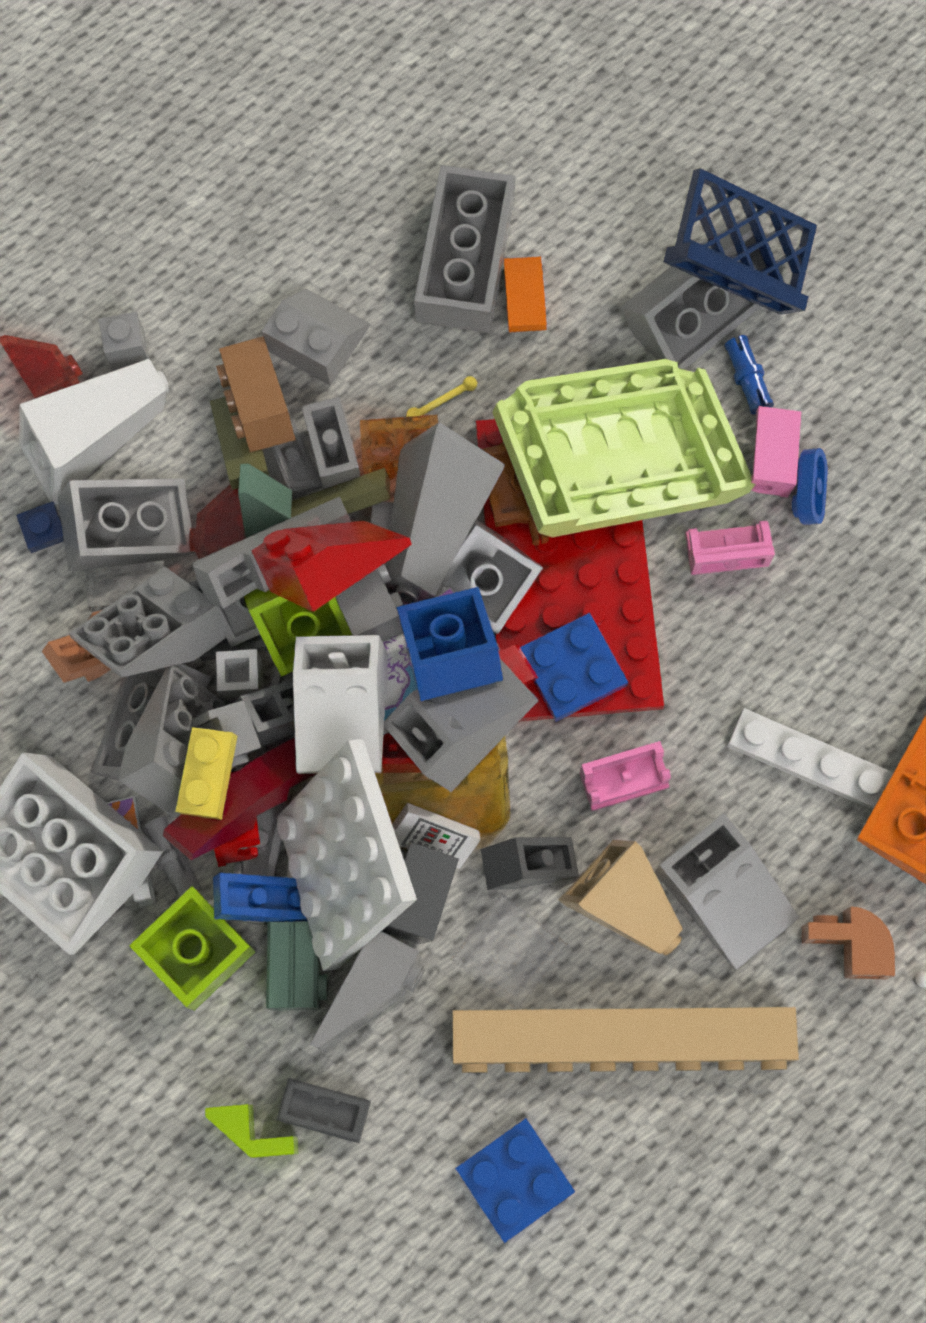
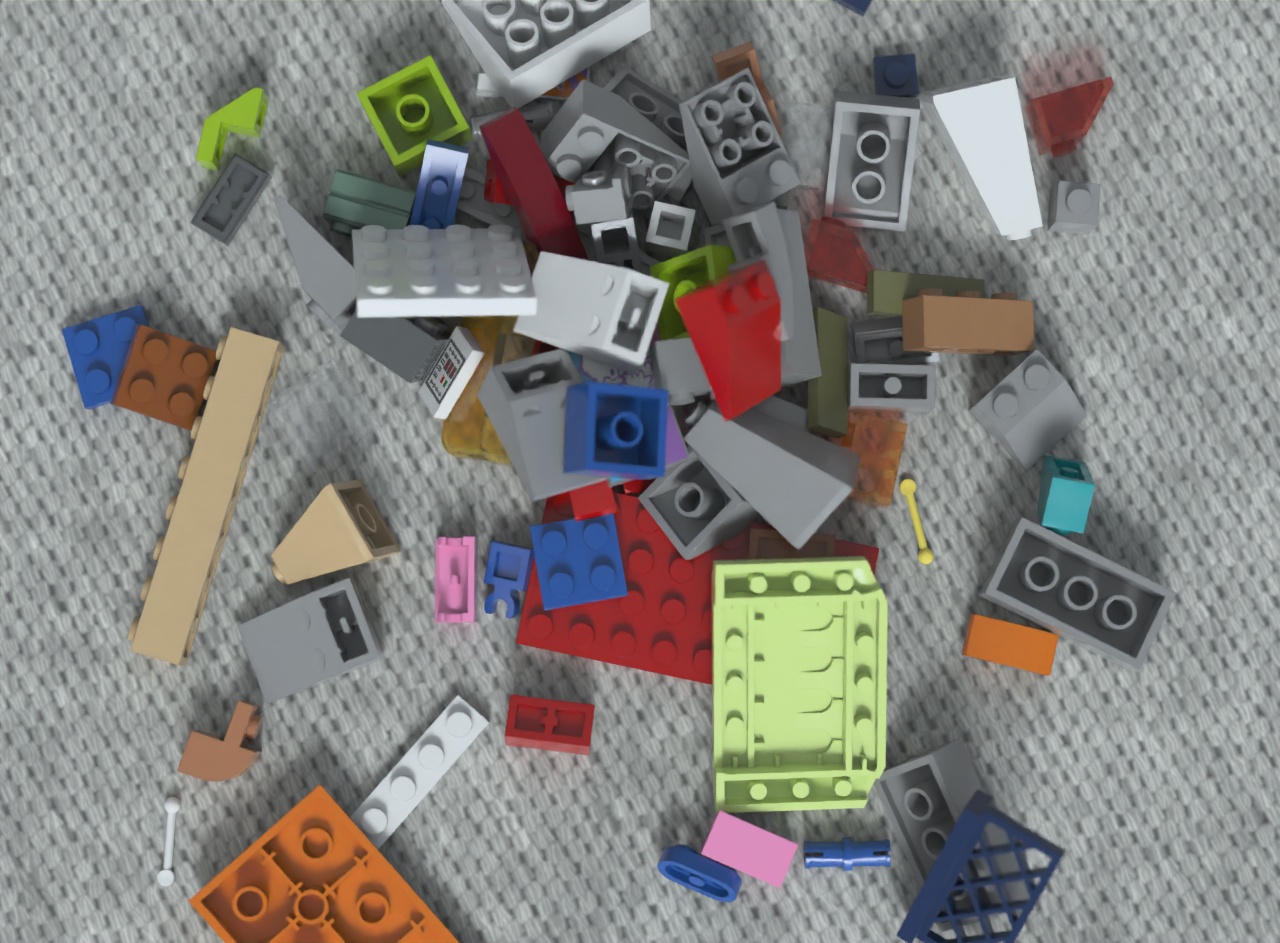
camera: 105 degrees right, 10 degrees up
(206, 773) = (558, 161): light yellow plate -> none
(262, 500) = (841, 298): sand green slope -> none
(382, 278) = (1064, 495): none -> teal slope
(521, 1117) = (164, 377): none -> dark orange plate
(529, 862) = (399, 459): dark grey slope -> none
(601, 731) = (509, 570): none -> blue plate
(727, 650) = (549, 725): none -> red hinge
(729, 548) = (662, 766): bright pink hinge -> none

